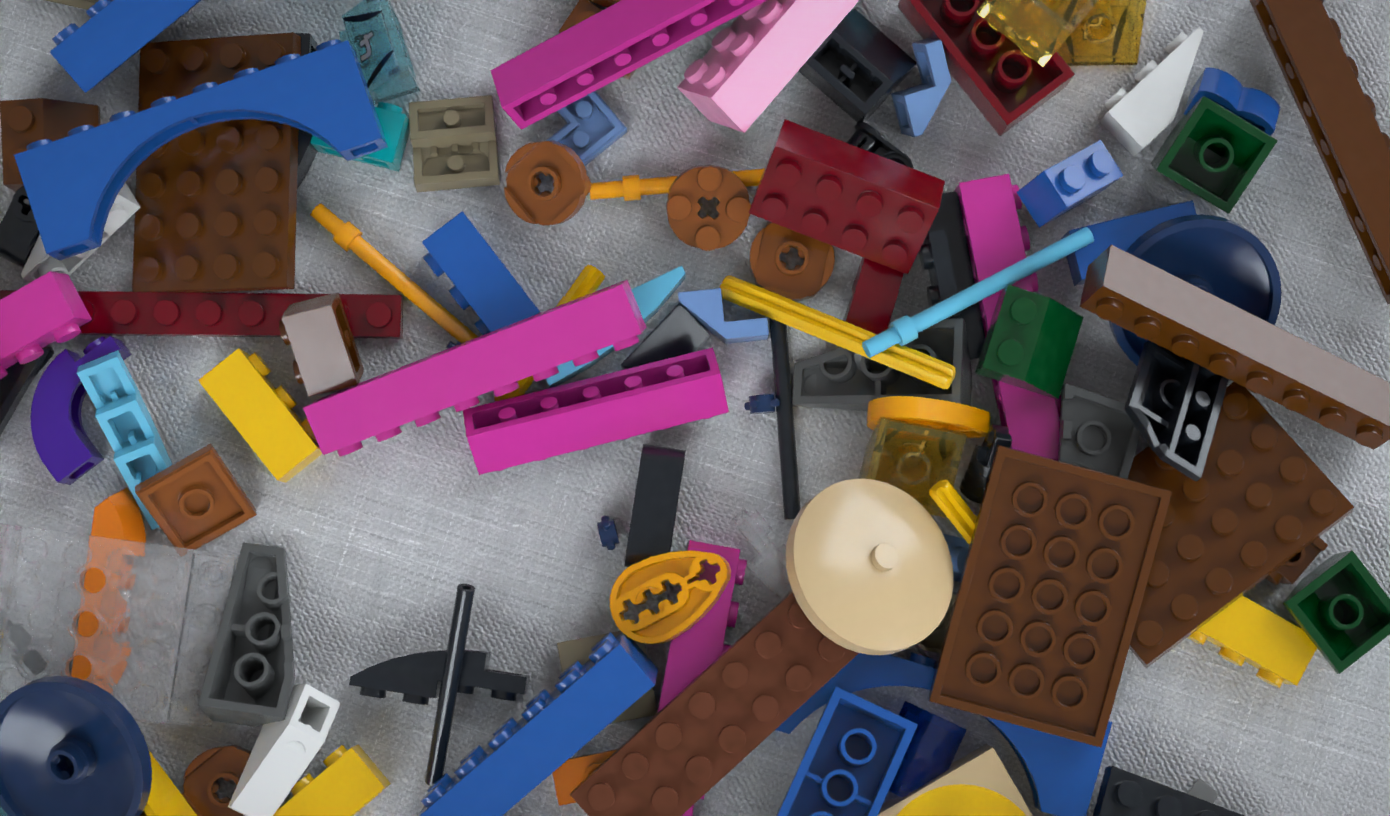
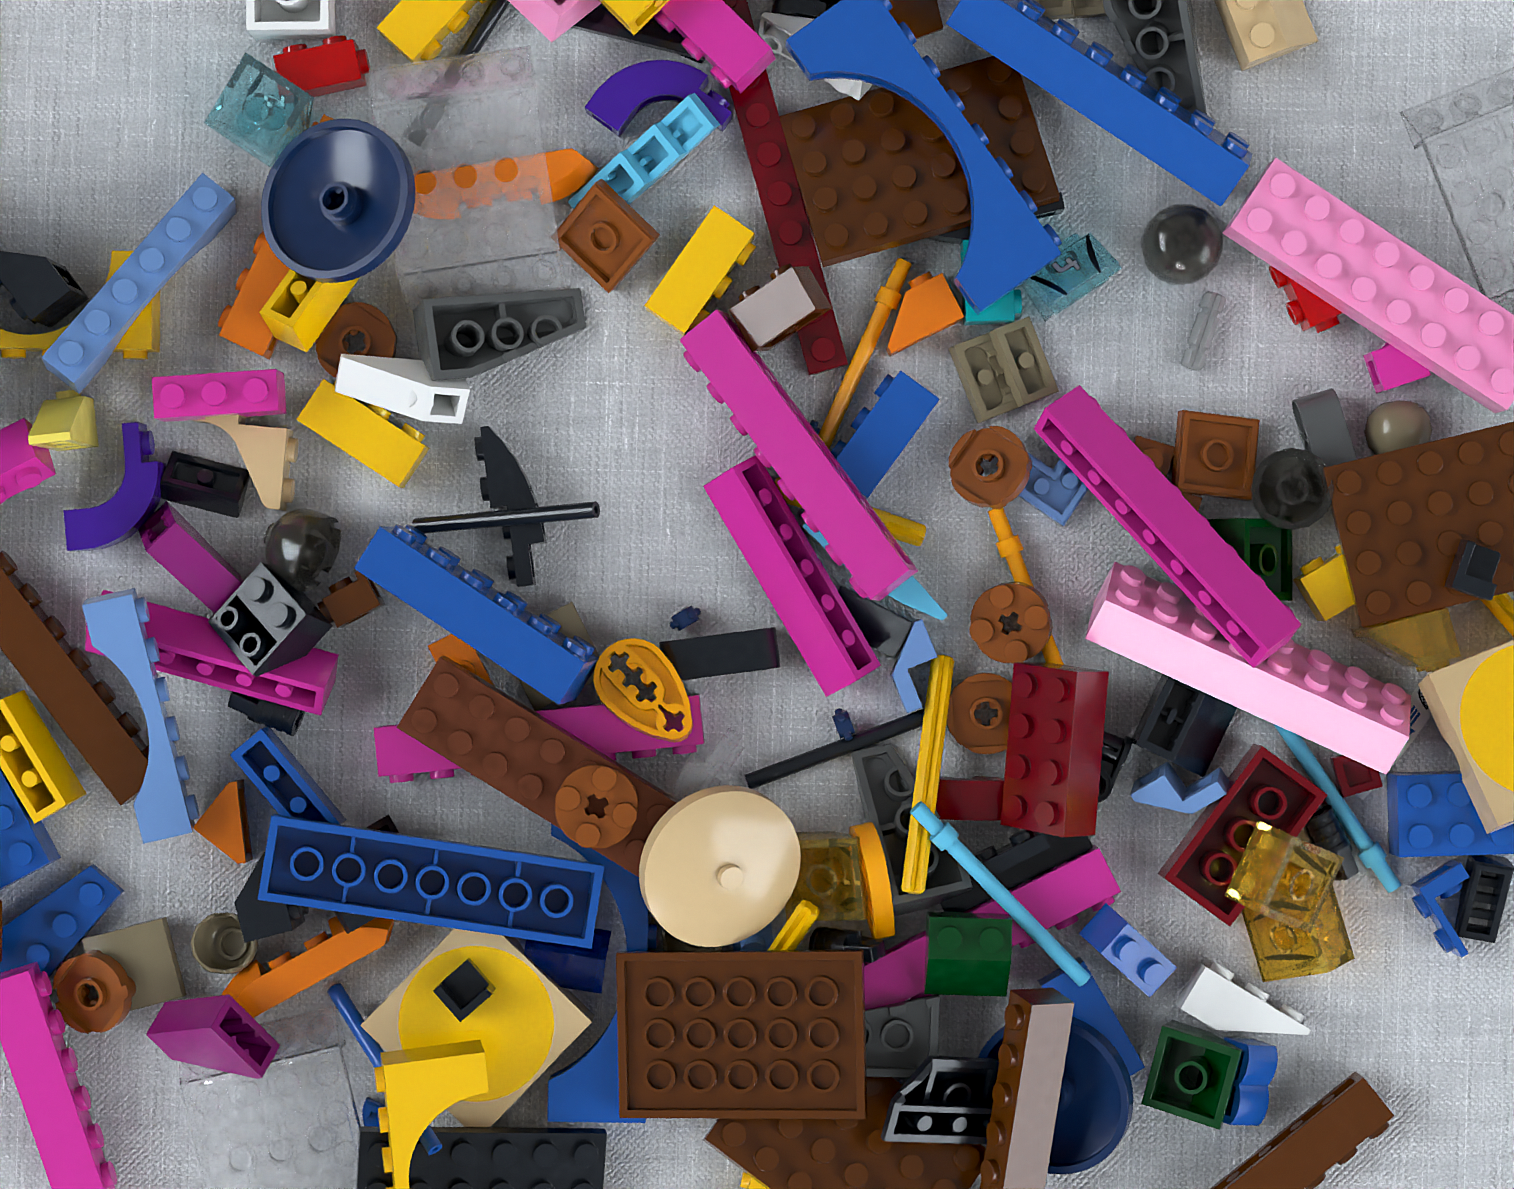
camera: 75 degrees right, 5 degrees up
(372, 204) = (923, 312): none -> orange slope
(757, 697) = (573, 799): none -> dark orange plate

